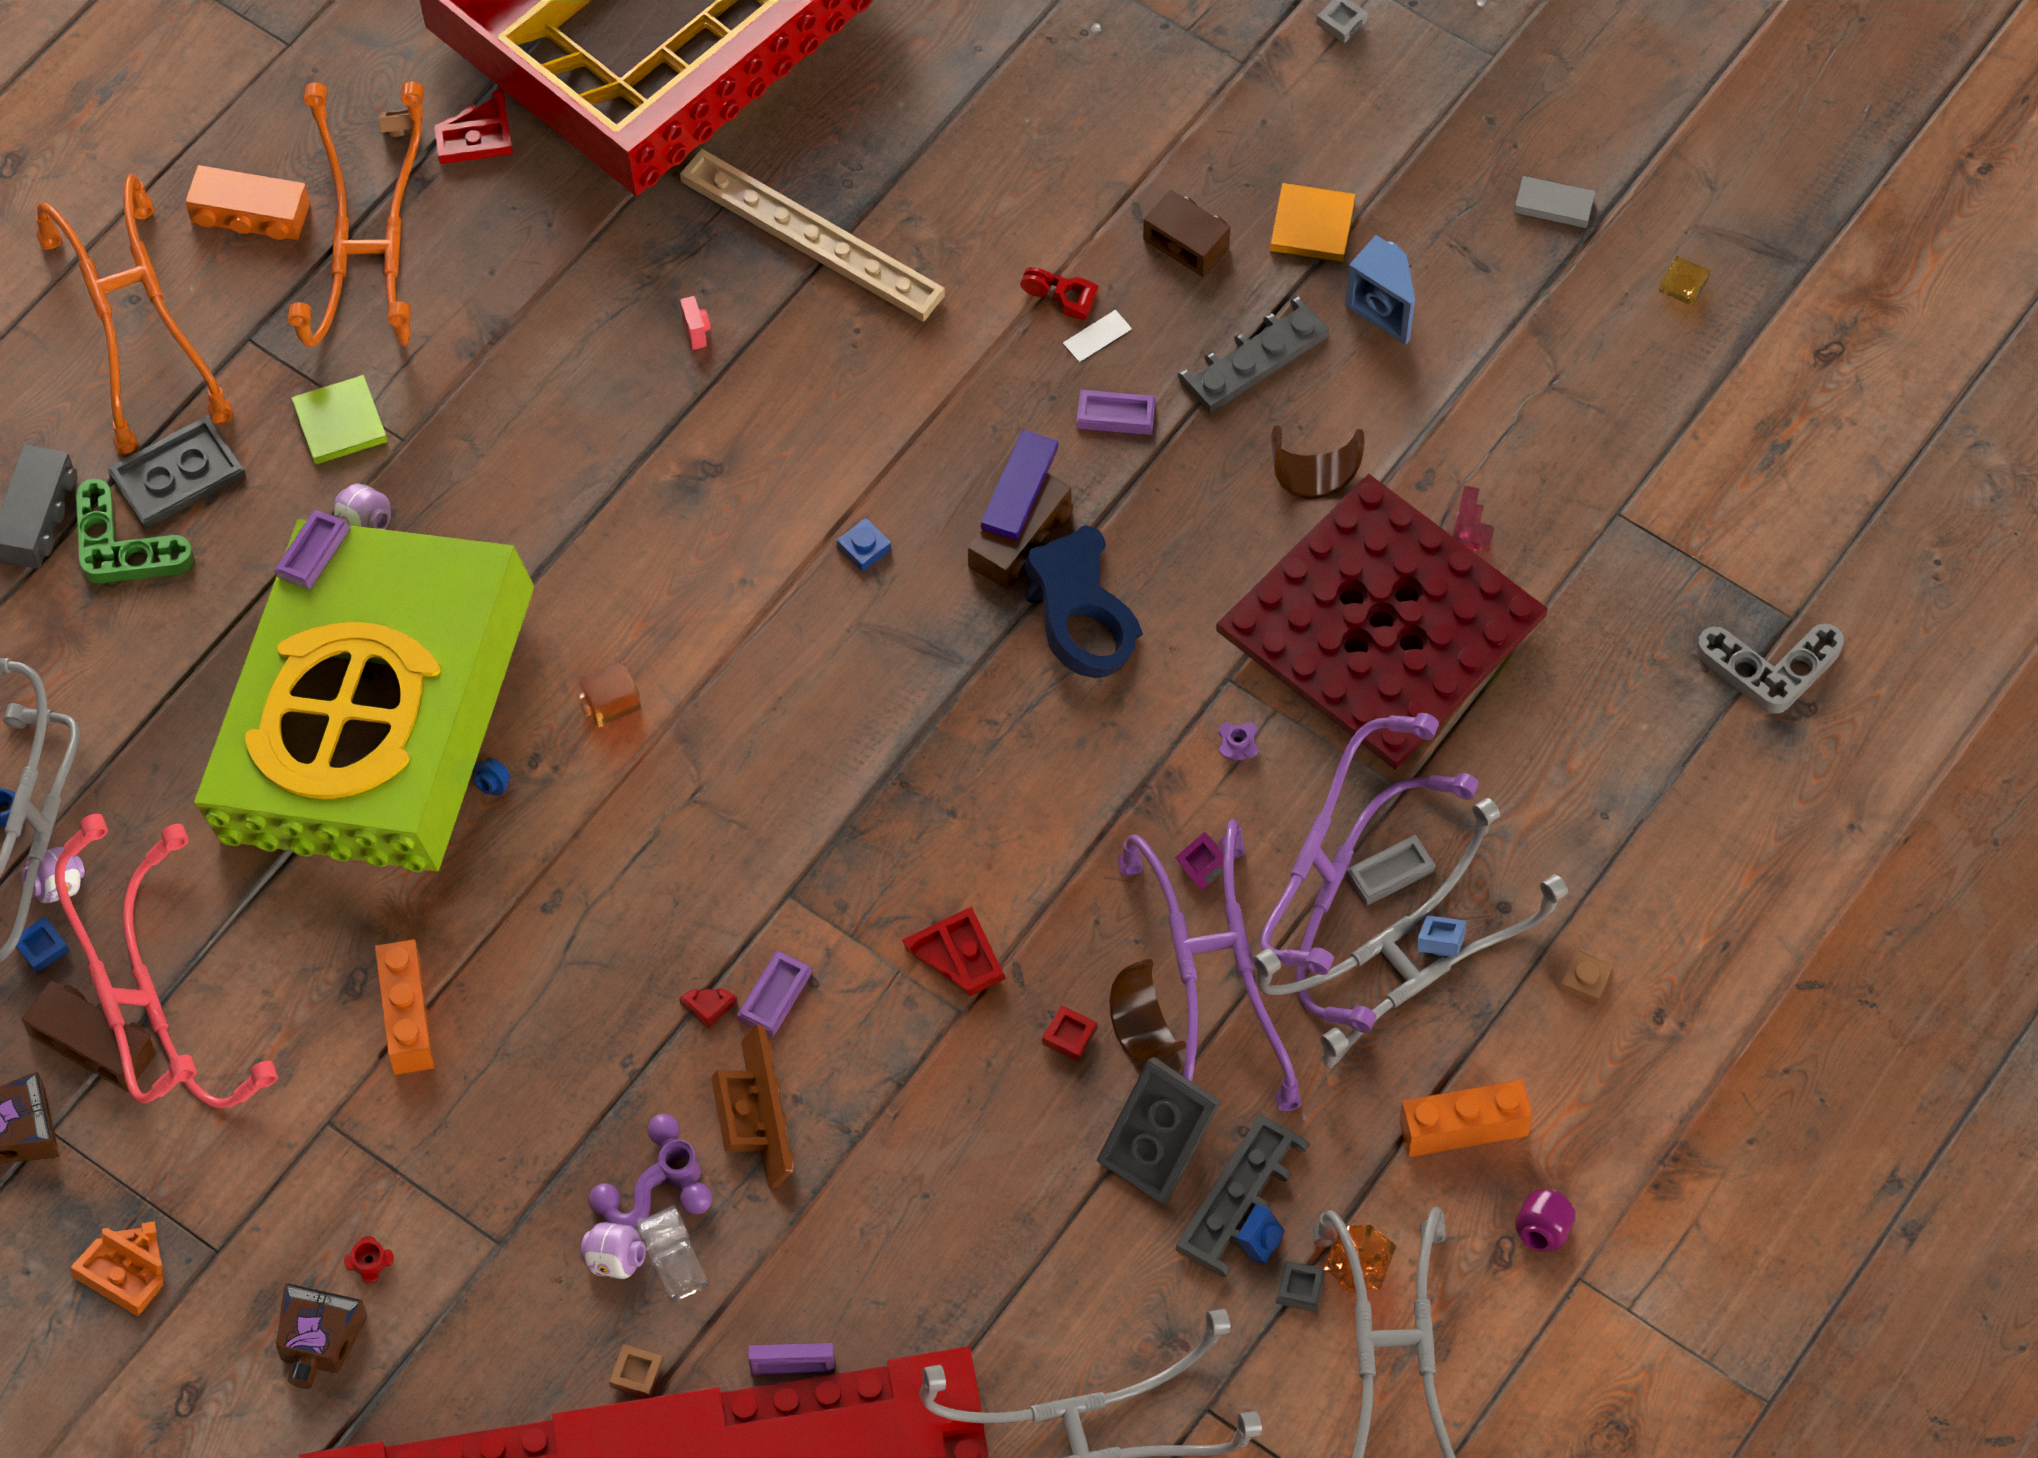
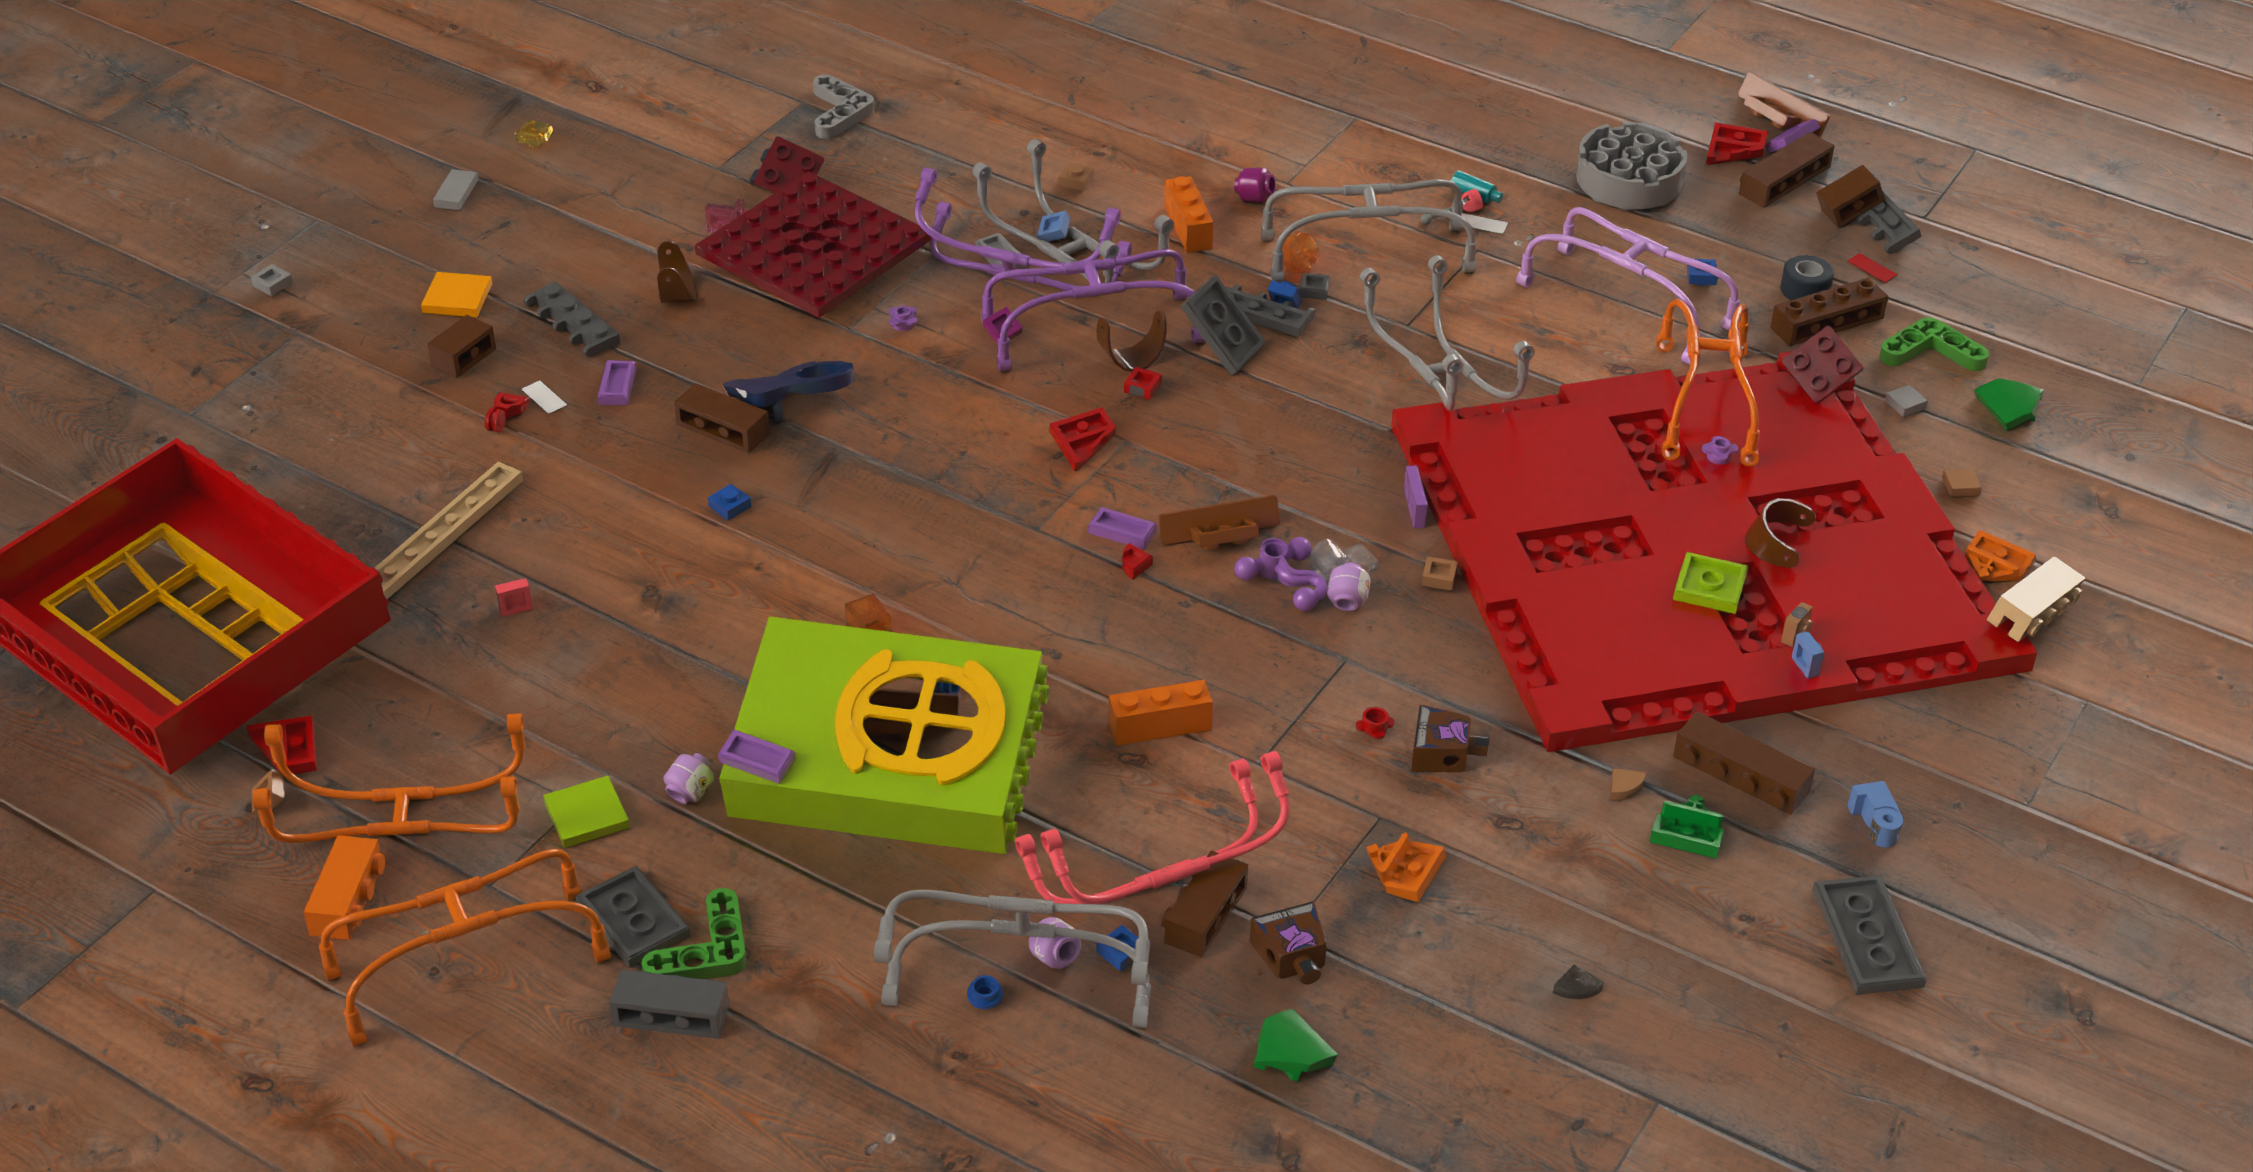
camera: 95 degrees left, 20 degrees down
(1019, 485) = (695, 401): dark purple tile -> none
(1382, 288) = (533, 243): medium blue slope -> none
(1574, 580) = (784, 164): none -> dark red plate

